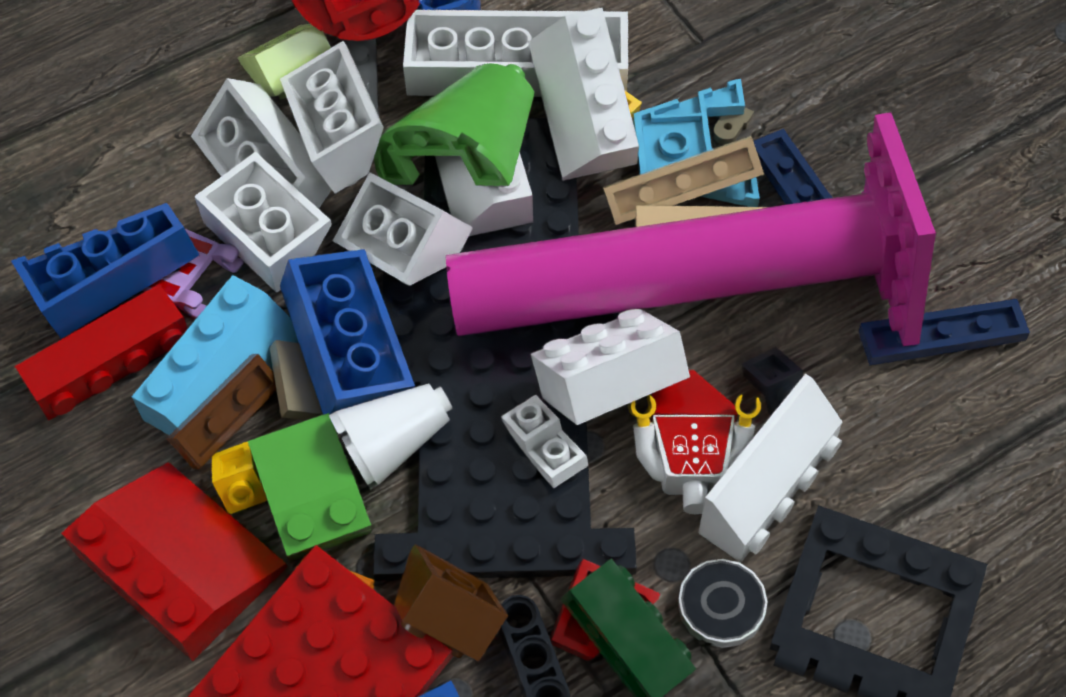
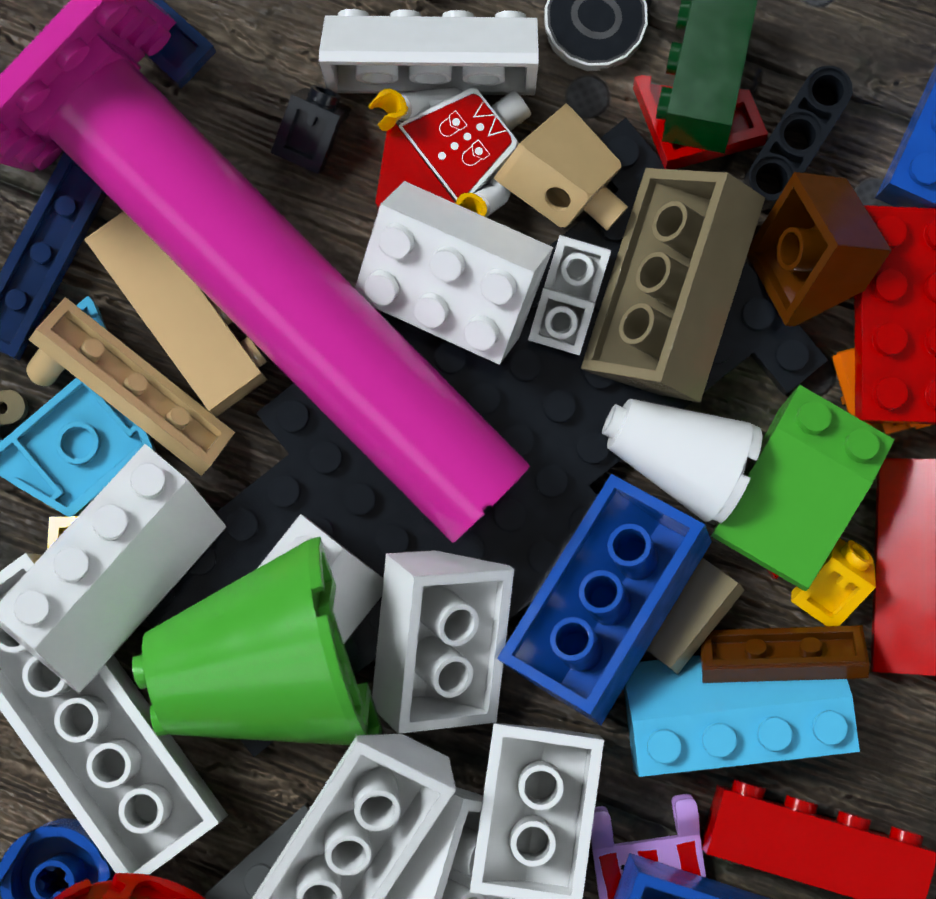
camera: 125 degrees left, 25 degrees up
(498, 500) = (674, 281): none -> dark tan slope
(626, 490) = (564, 171): none -> tan torso

